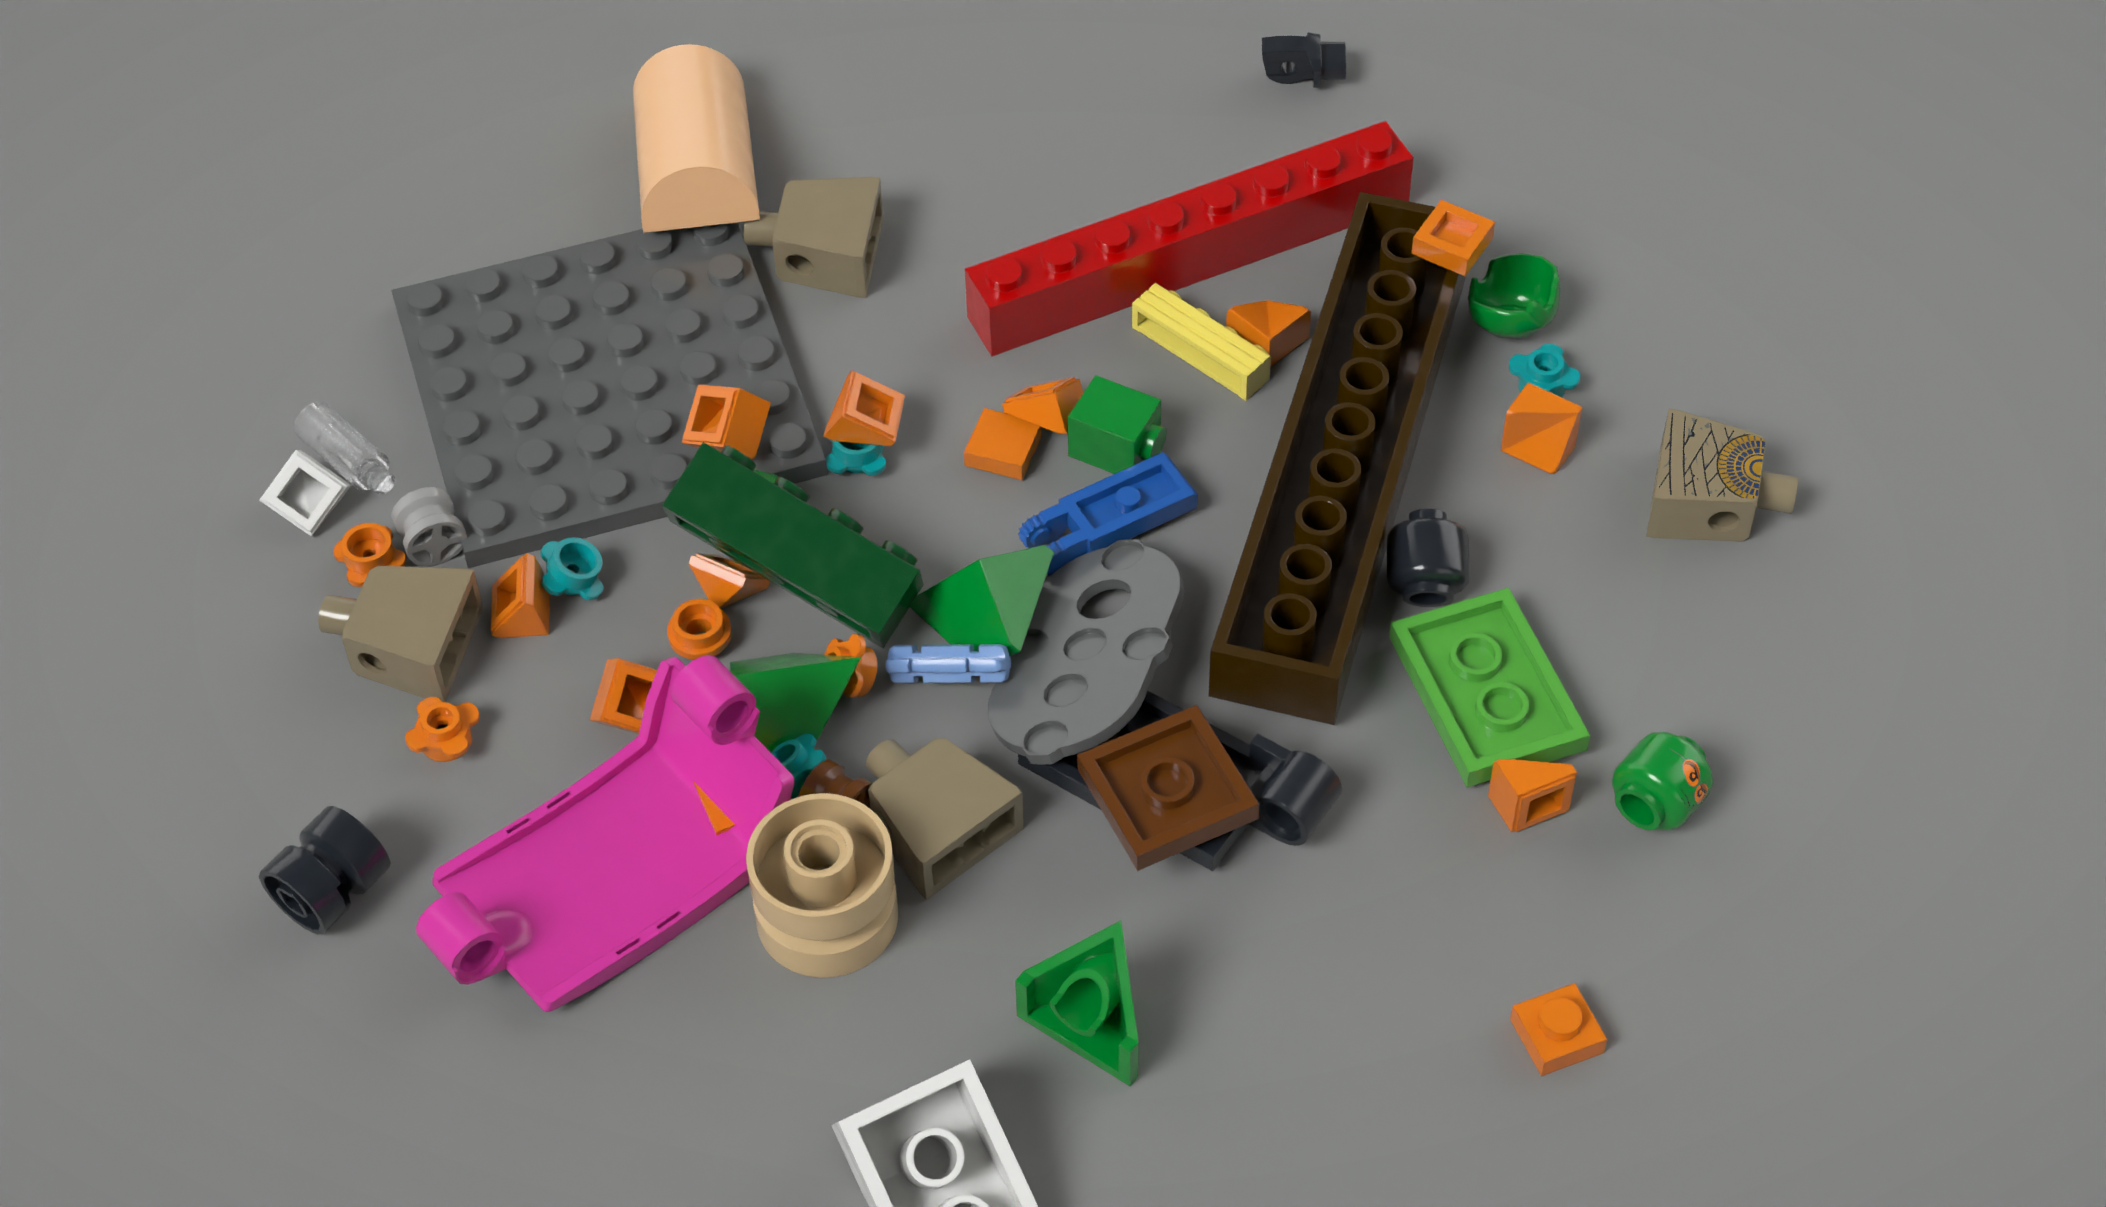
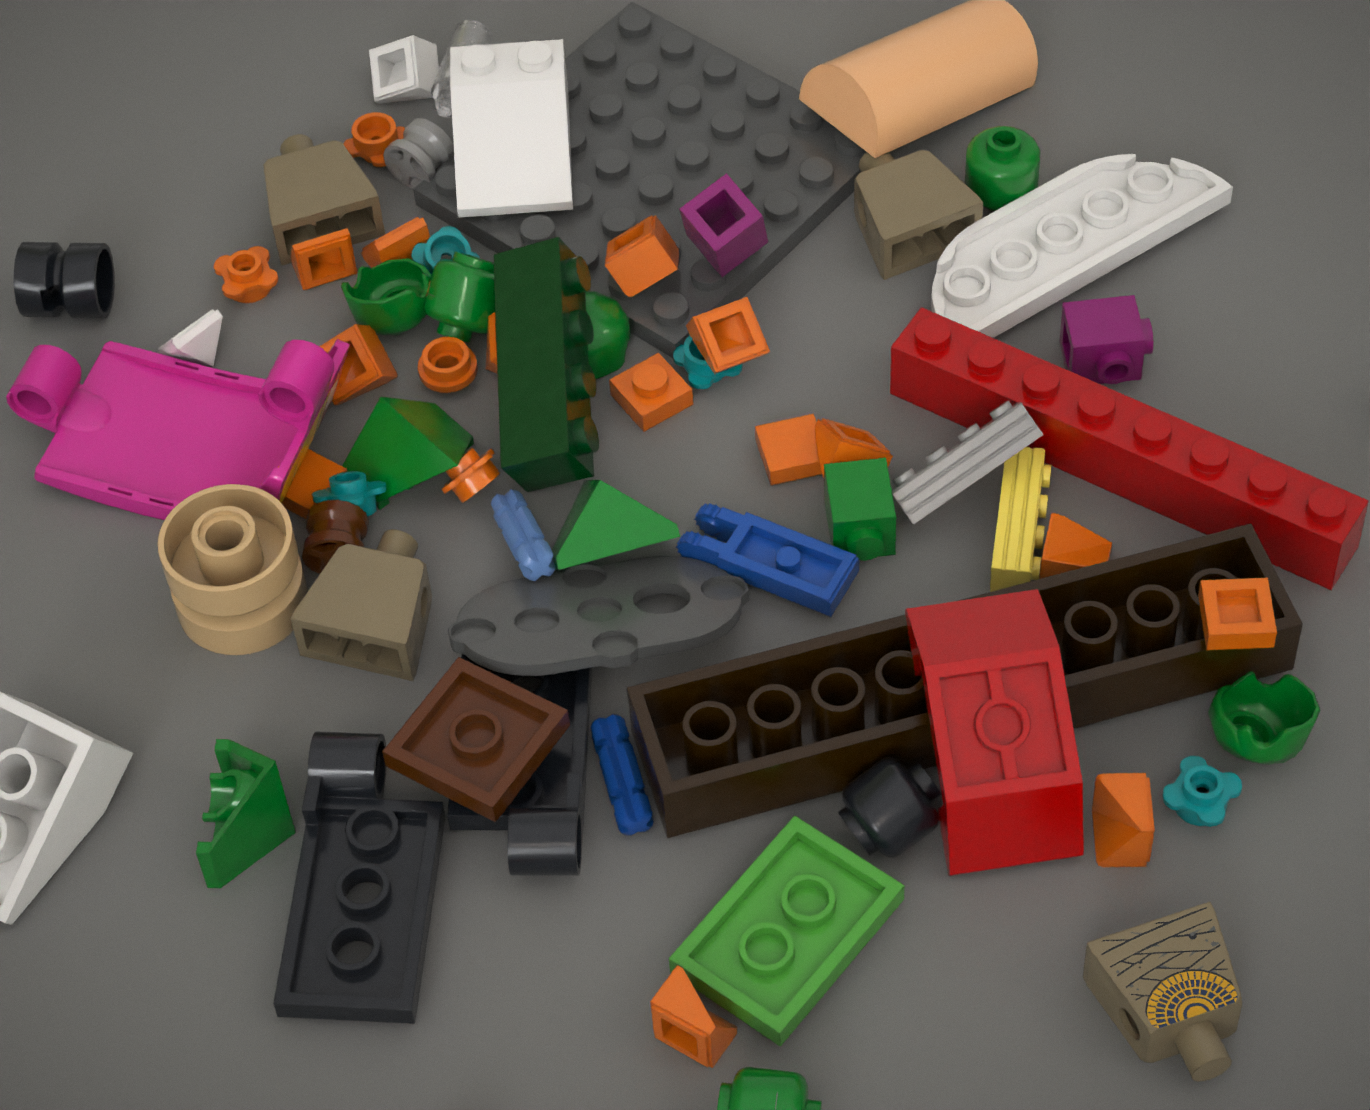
camera: 60 degrees right, 0 degrees up
(485, 663) = (323, 259): none -> orange slope
(487, 803) = (197, 341): none -> white slope
(489, 434) = (511, 128): none -> white slope
(586, 625) = (389, 296): none -> green hair
(646, 570) = (461, 296): none -> green head
(765, 341) = (724, 225): none -> magenta brick
(842, 146) = (1002, 165): none -> green head
(861, 498) = (651, 392): none -> orange plate
(942, 162) = (1068, 237): none -> white plate
(1074, 191) = (1105, 339): none -> magenta brick
(1138, 323) = (966, 462): none -> light grey piece
(1210, 912) = (350, 841): none -> black hinge
(1247, 719) = (622, 775): none -> blue axle
(1439, 421) = (999, 731): none -> red slope

